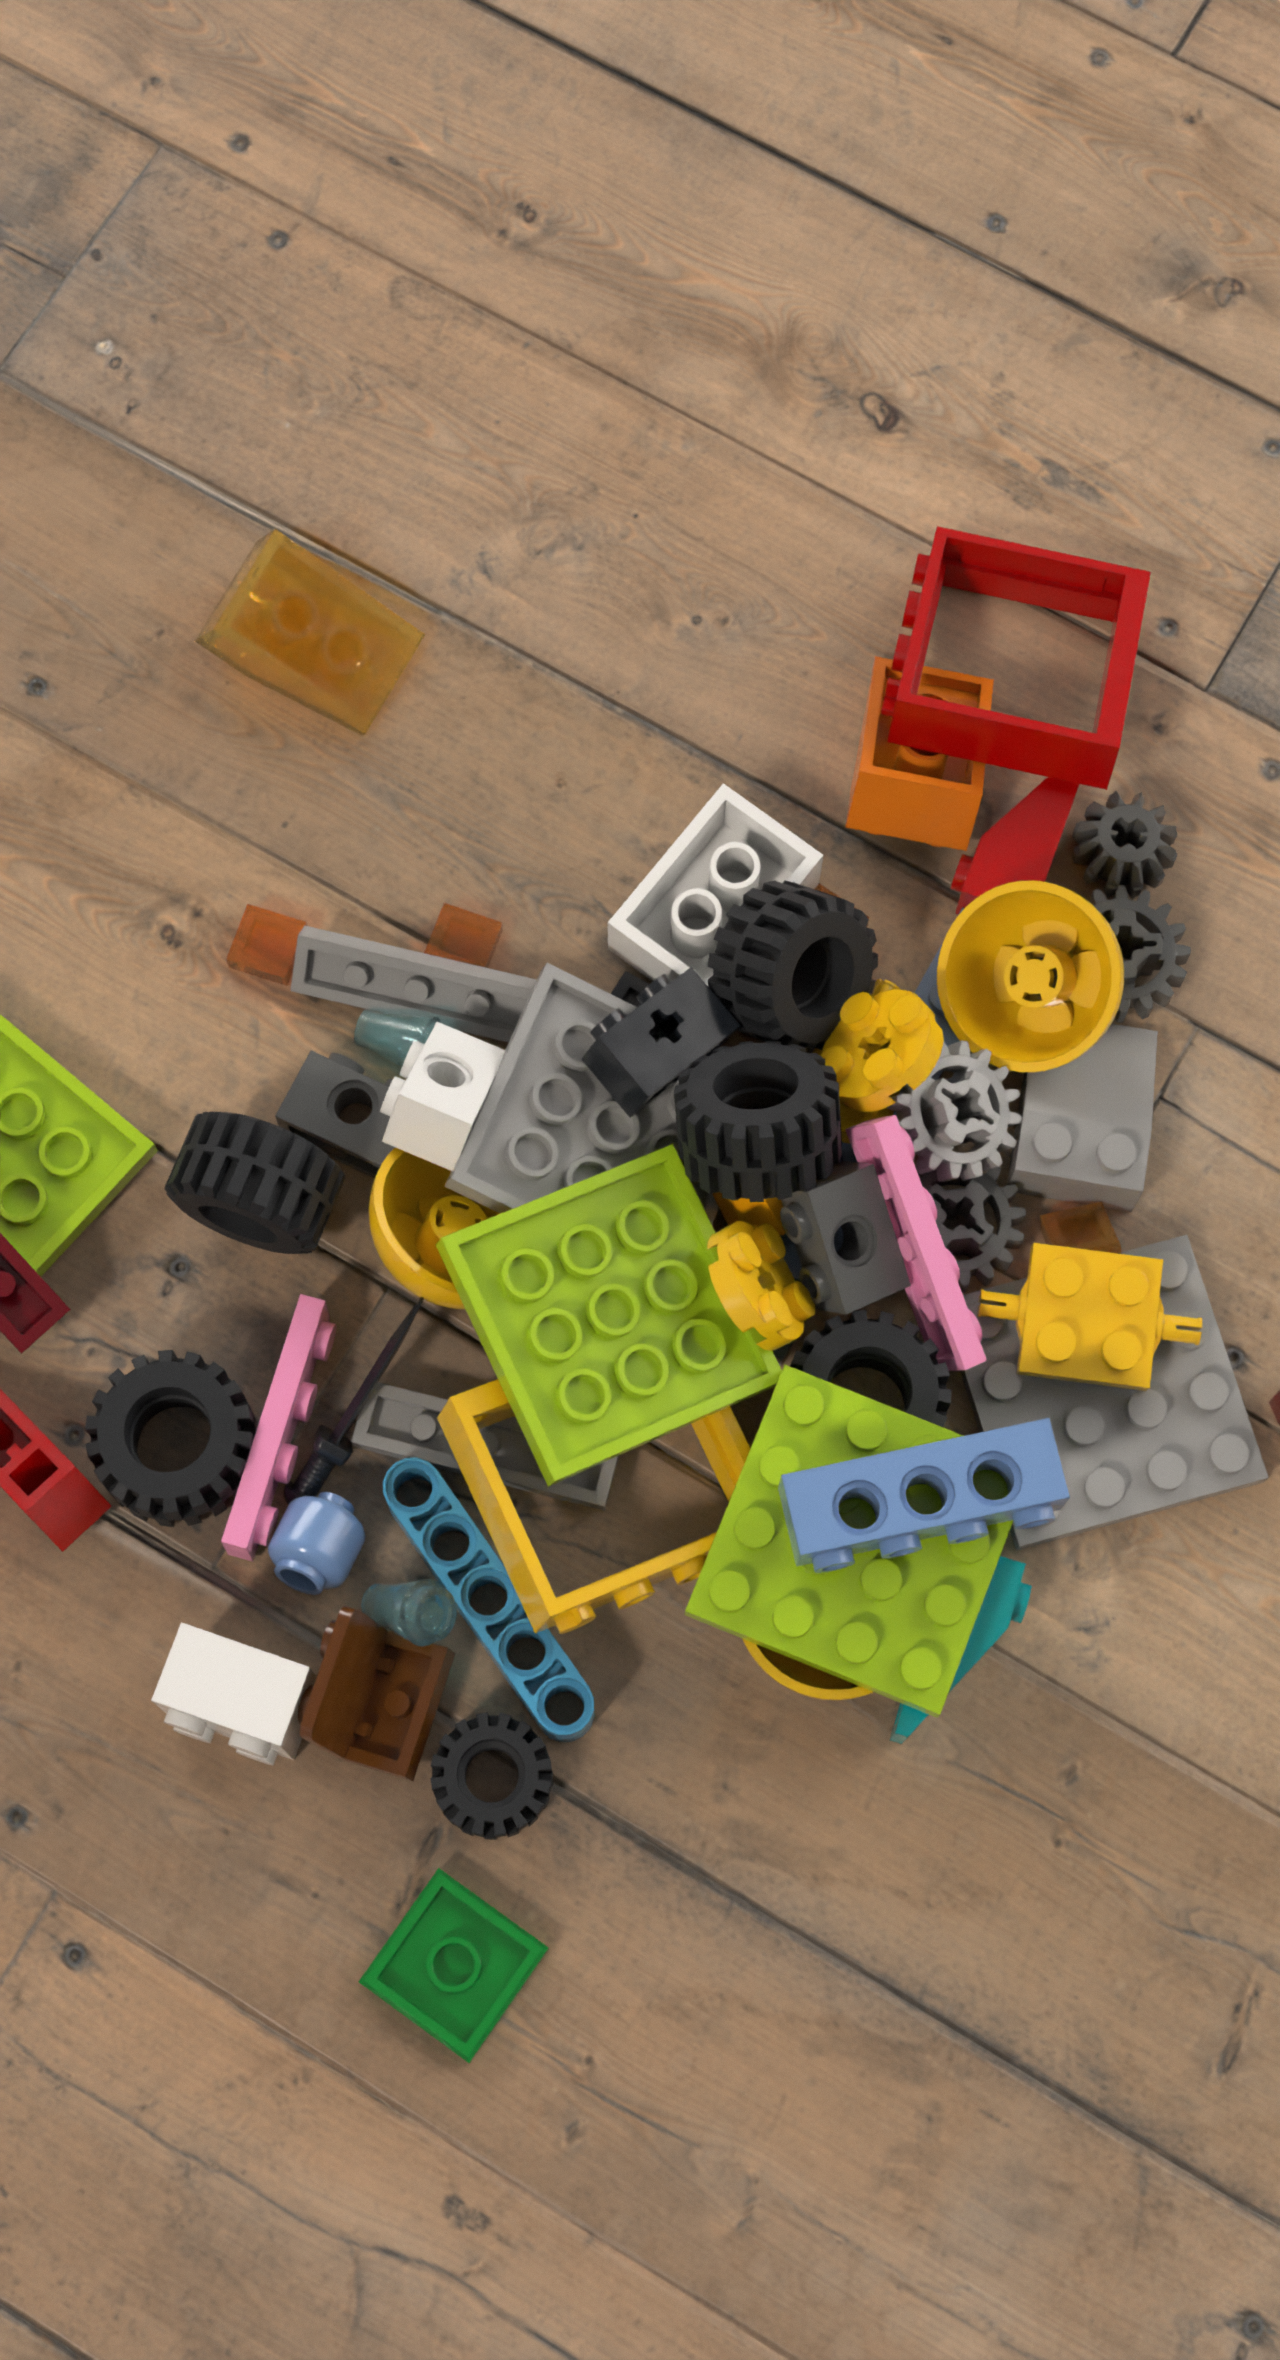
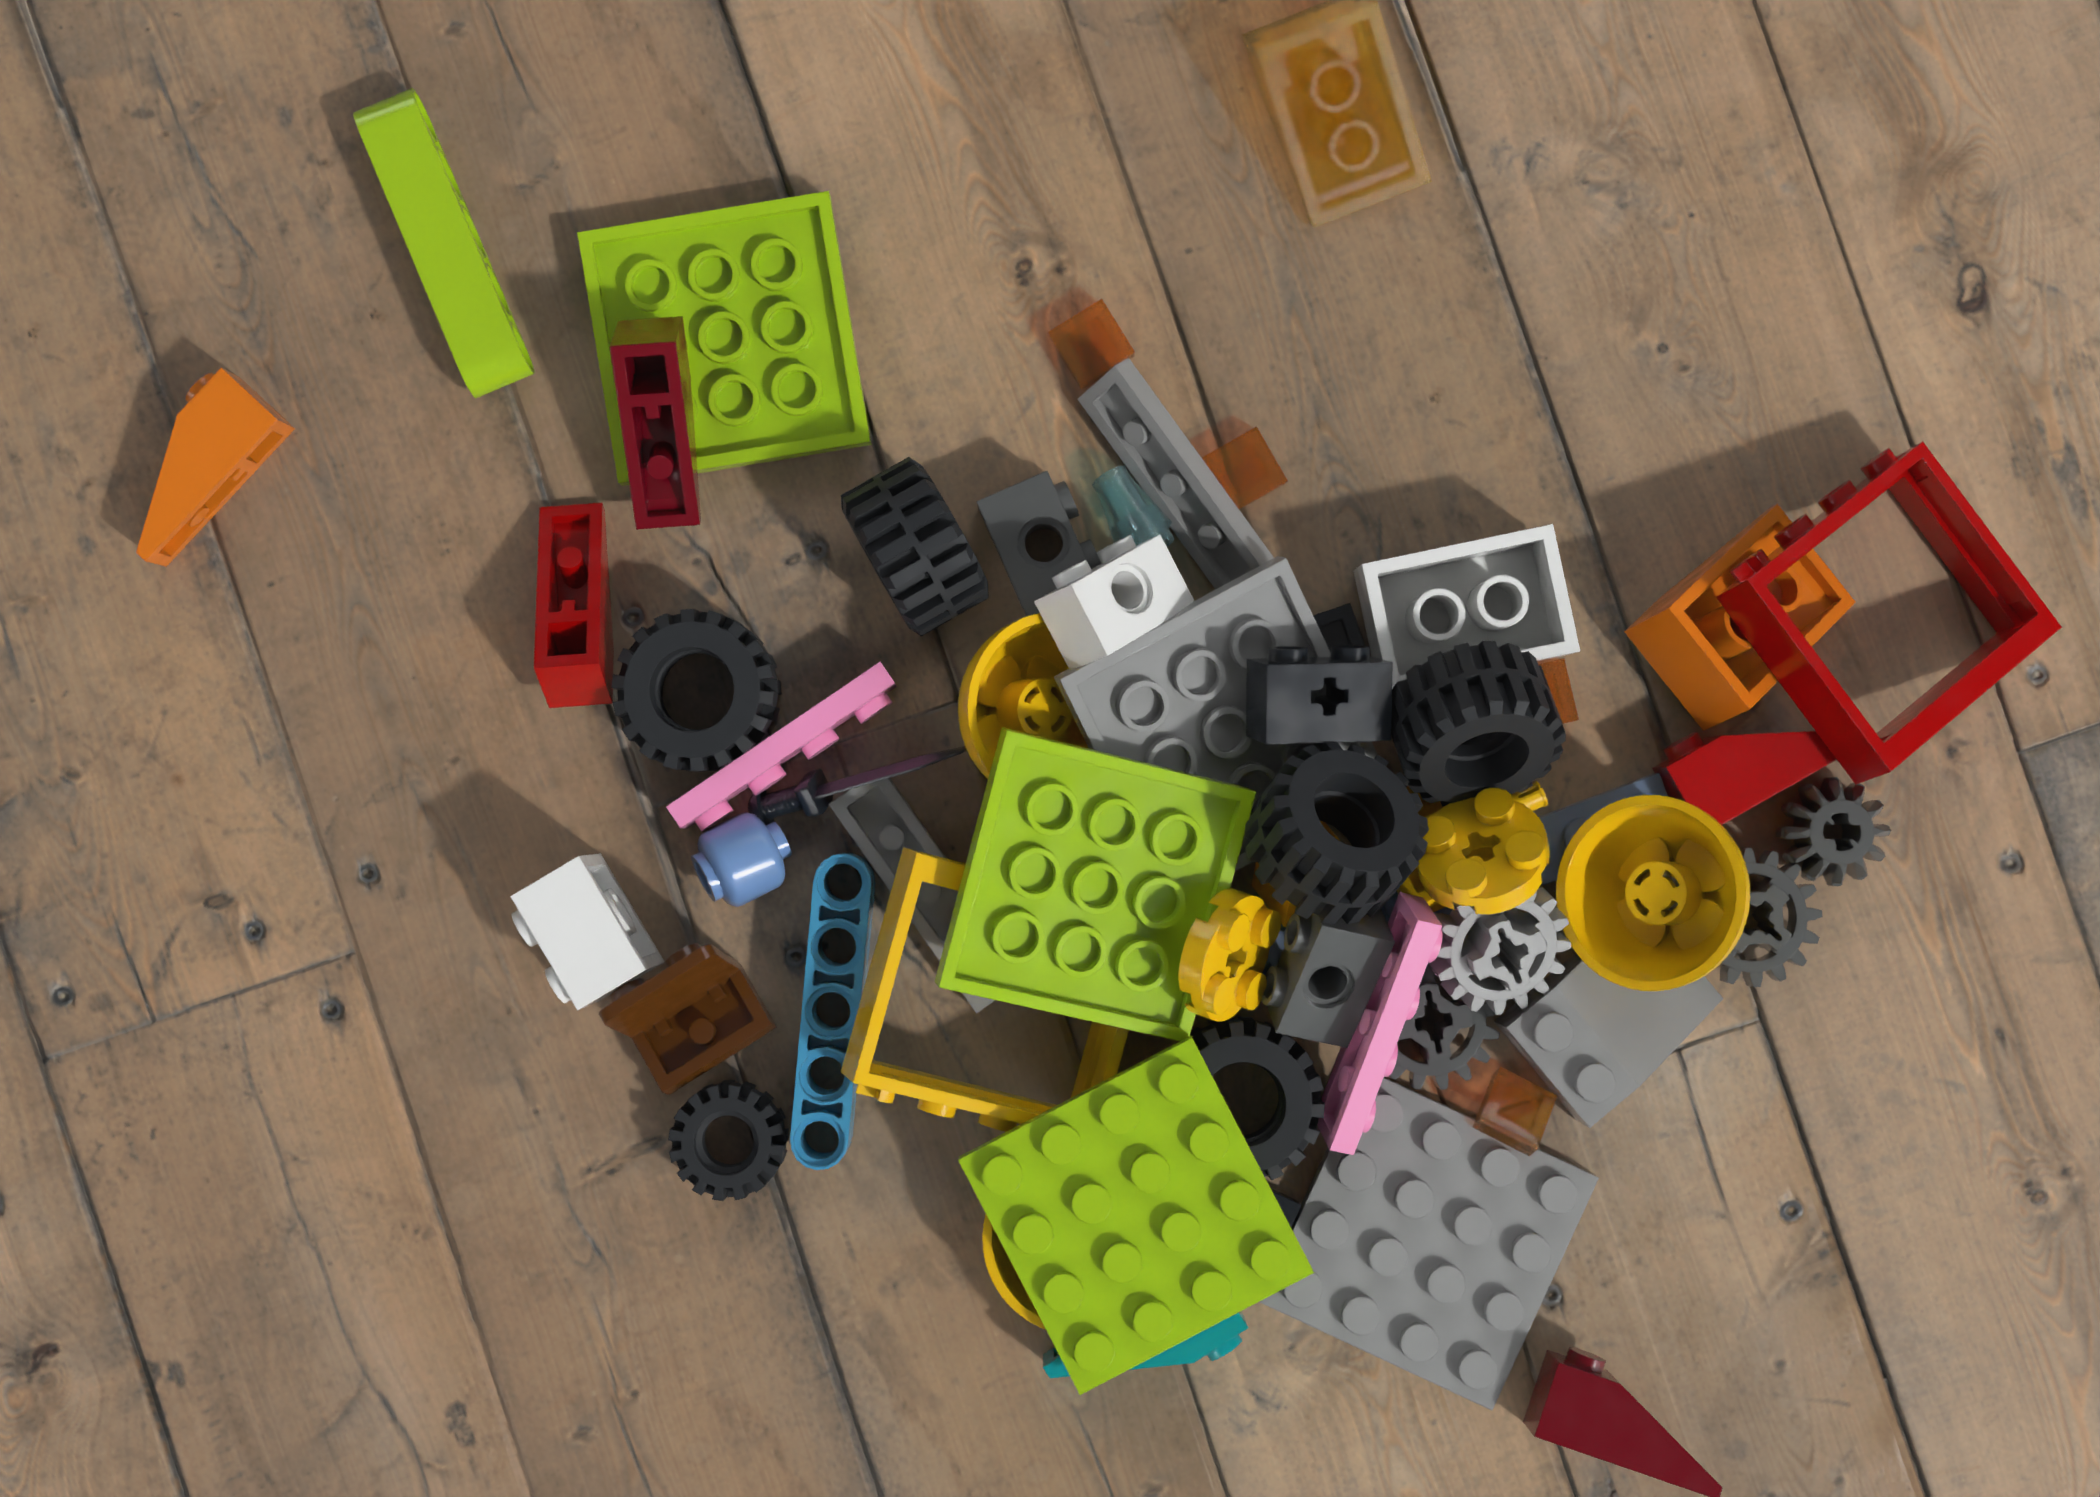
camera: 45 degrees right, 15 degrees up
(414, 1609) = (767, 973): clear light blue cone -> none
(454, 1965) = (592, 1248): green tile -> none
(1019, 1453) = (1305, 1269): medium blue brick -> none
(1089, 1316) = (1463, 1184): yellow plate -> none

